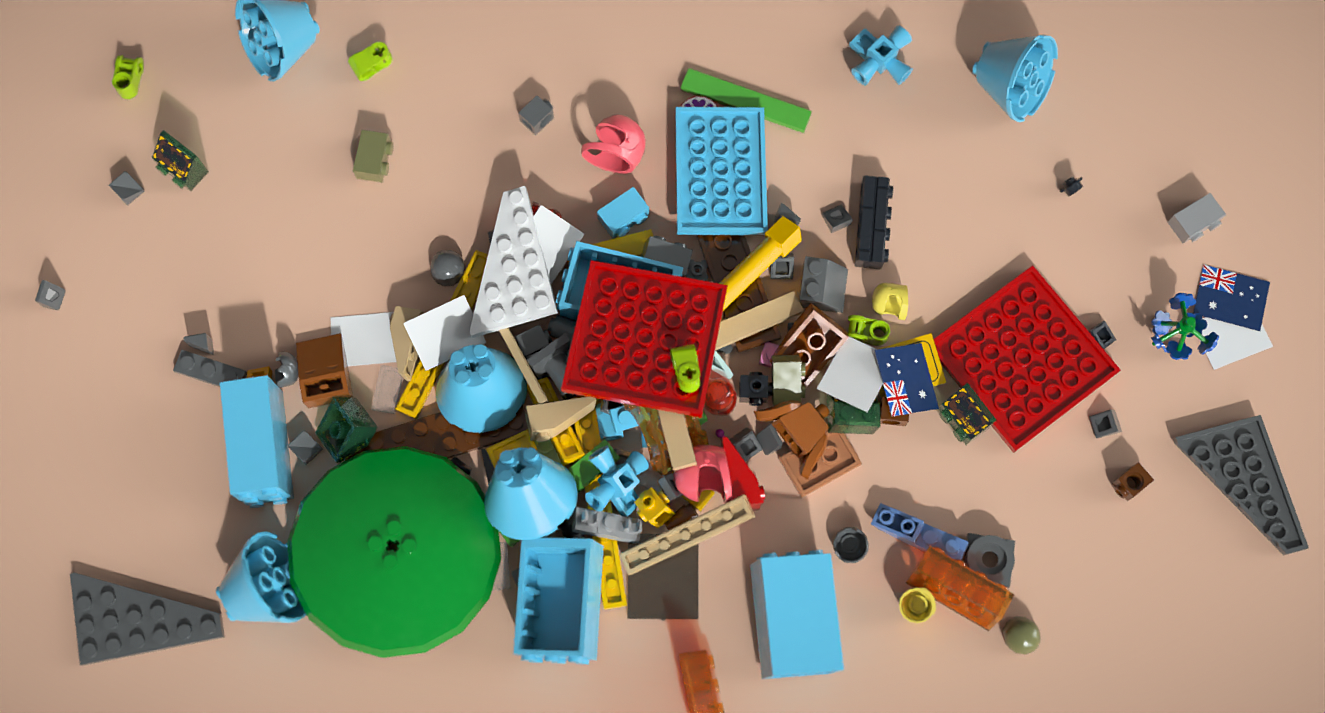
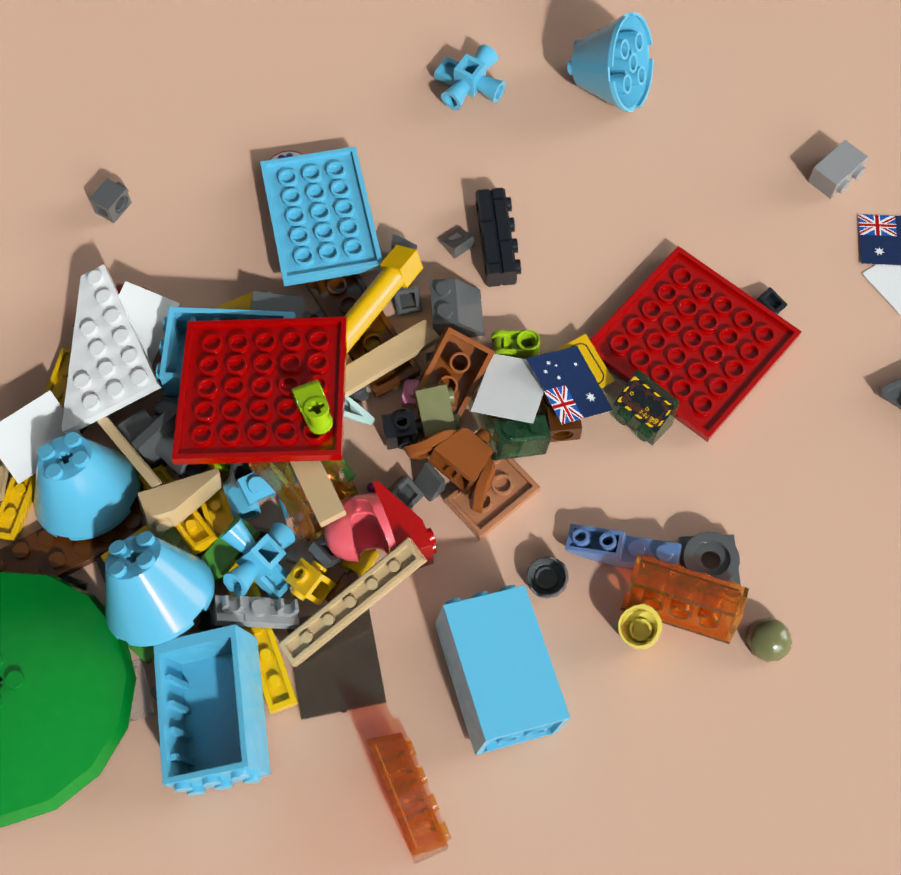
camera: 10 degrees left, 10 degrees down
(447, 268) = (31, 372): dark grey hair -> none
(620, 147) = (208, 209): coral piece -> none
(623, 213) = (221, 278): medium azure brick -> none
(720, 396) = (360, 443): clear red helmet -> none
(737, 96) = (368, 150): bright green tile -> none
(891, 299) = (533, 309): light yellow helmet -> none
(1072, 185) = (699, 162): black plate -> none
(1105, 423) = (799, 391): dark grey slope -> none
(1139, 475) = (853, 437): reddish brown brick -> none
(1187, 326) = (861, 270): blue plant -> none

